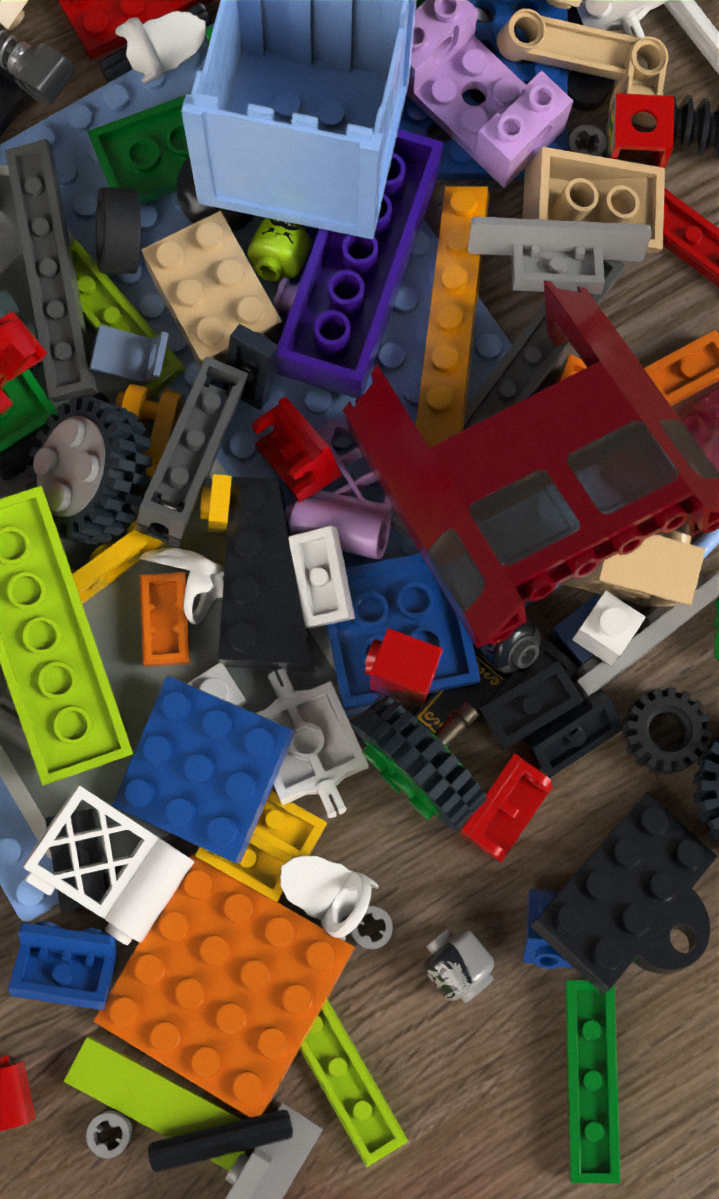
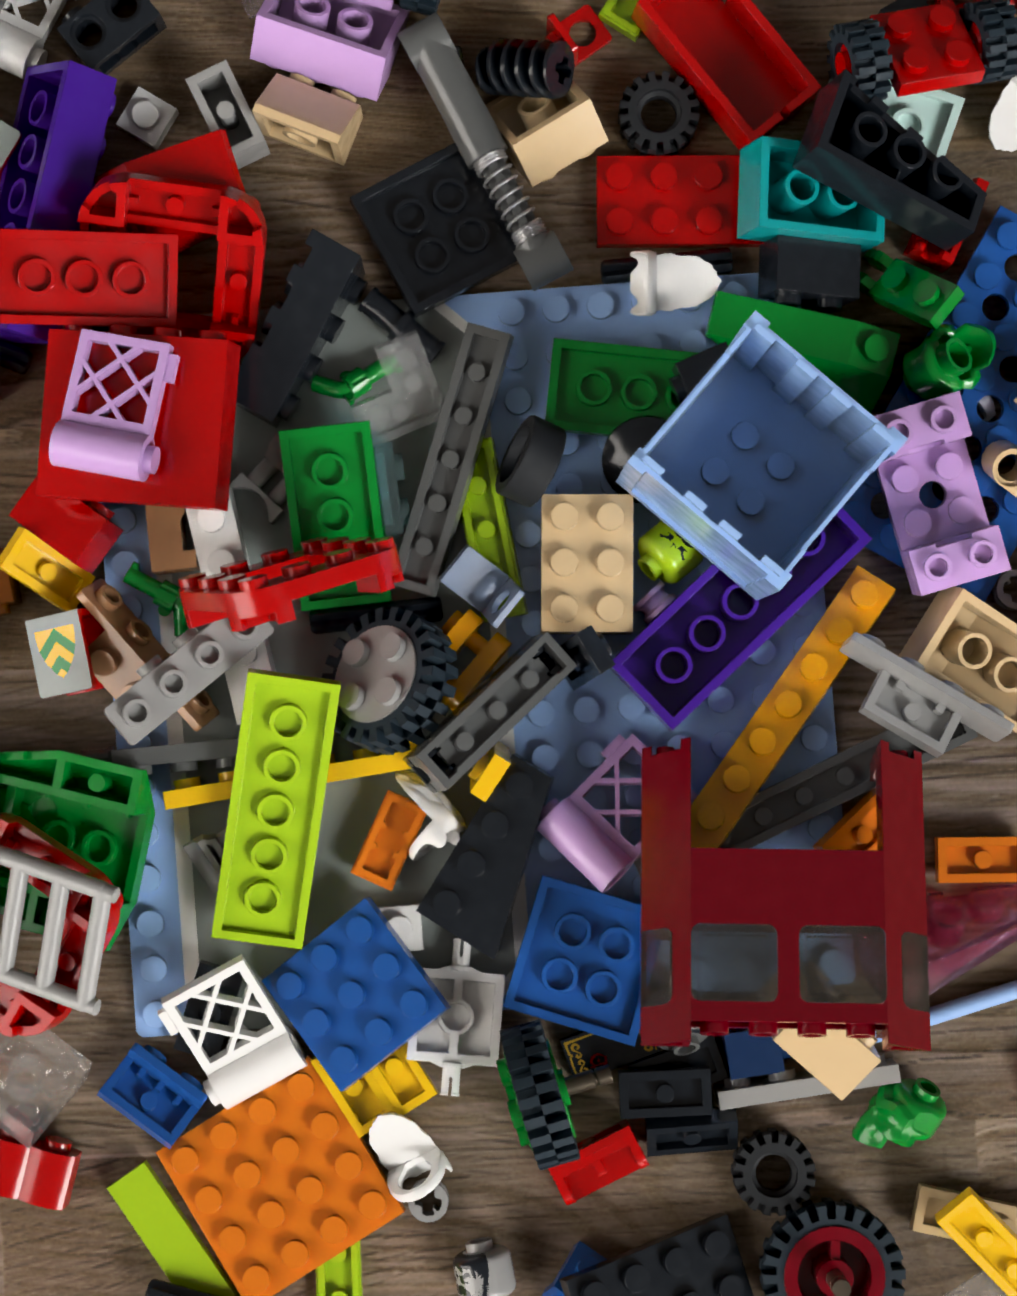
camera: 30 degrees right, 10 degrees up
(104, 1148) = (111, 1258): light grey bush -> none
(295, 451) = (581, 755): red hinge -> none
(321, 577) = (543, 887): white plate -> none
(402, 667) = (569, 1012): red brick -> none
(609, 628) = (767, 1069): white brick -> none

